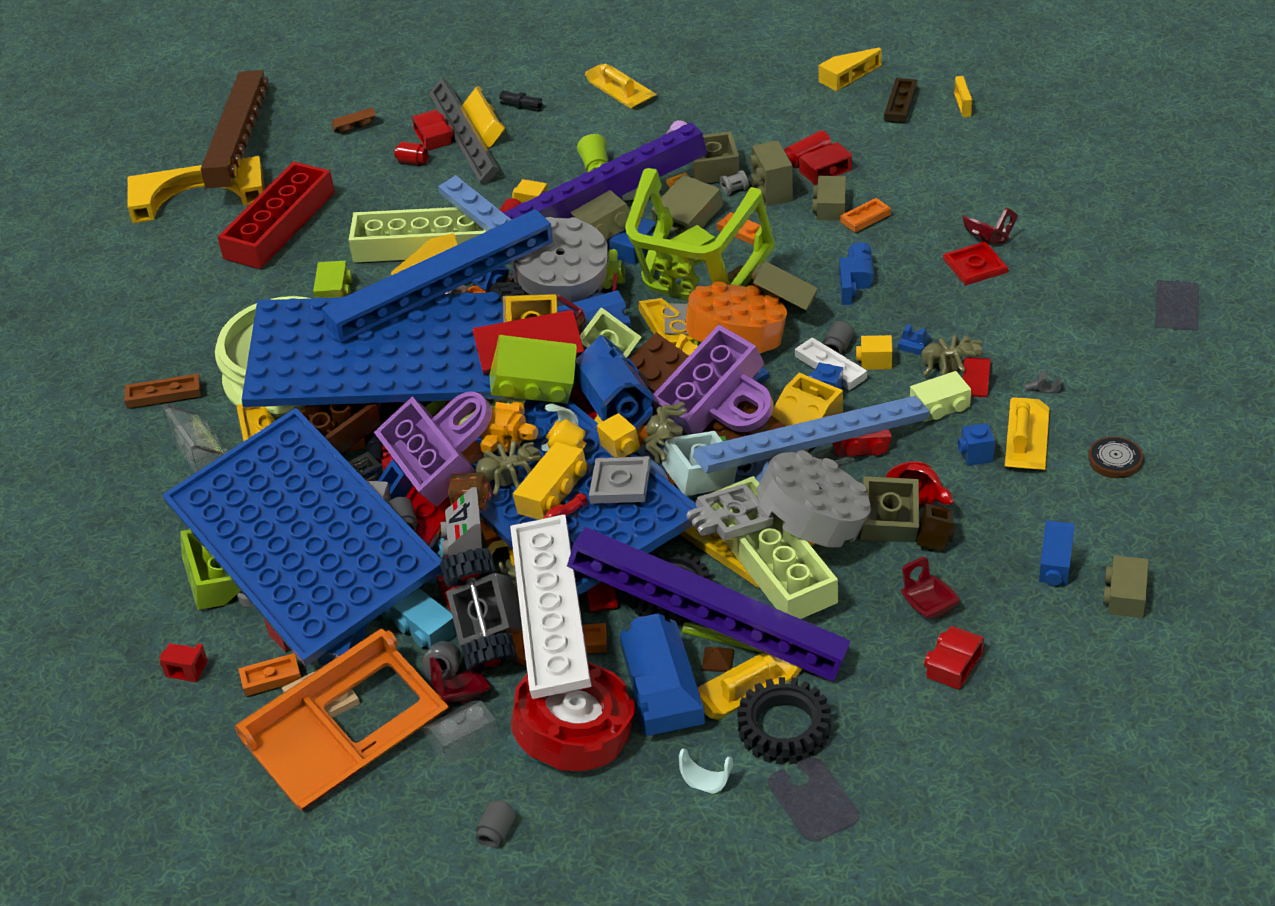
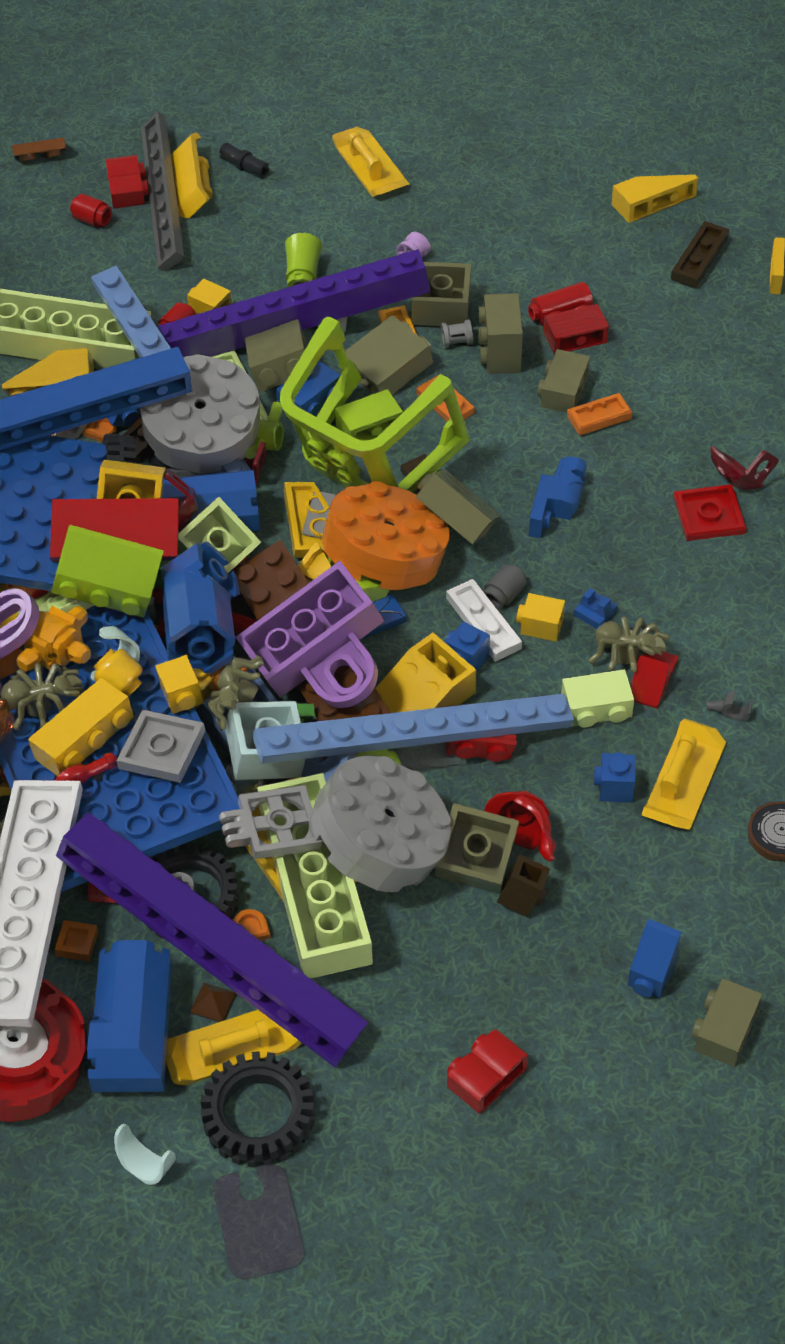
camera: 10 degrees right, 10 degrees up
(929, 594) = (485, 976): dark red piece -> none

